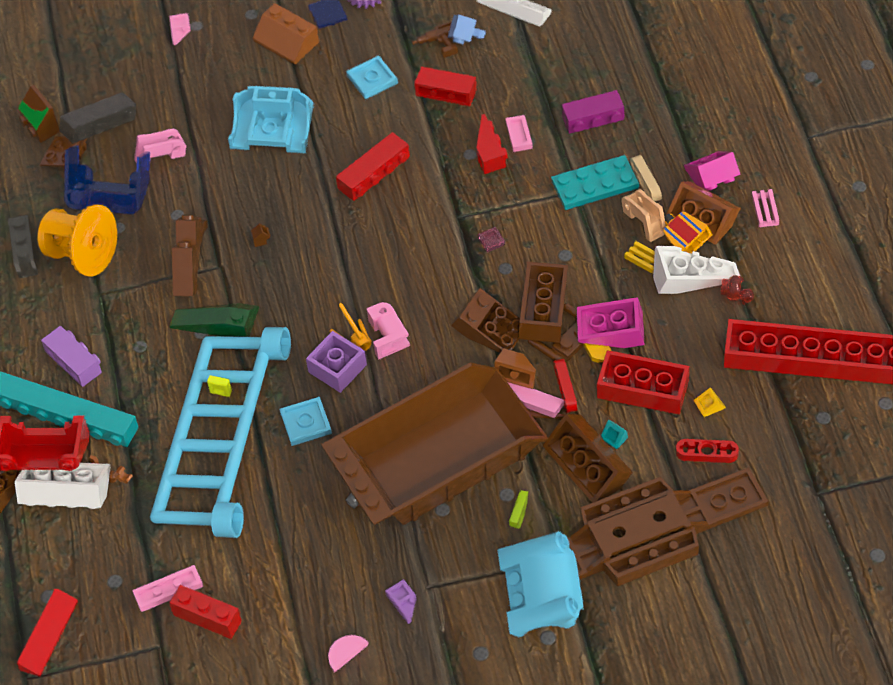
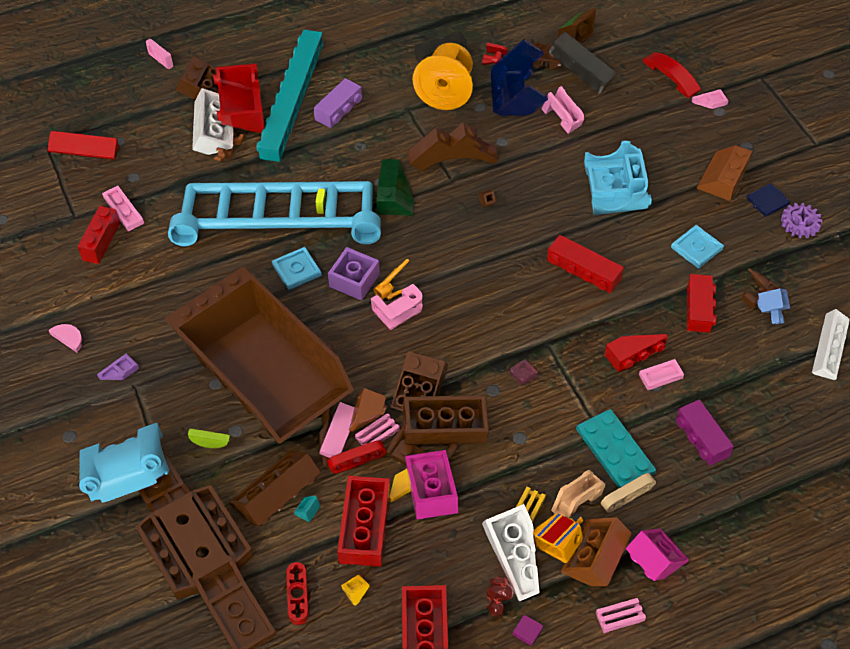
camera: 75 degrees right, 0 degrees up
(41, 193) = (498, 50): none -> red piece
(127, 48) = (675, 71): none -> red slope
(552, 377) = (376, 428): none -> bright pink tile
(770, 276) = (527, 630): none -> magenta tile

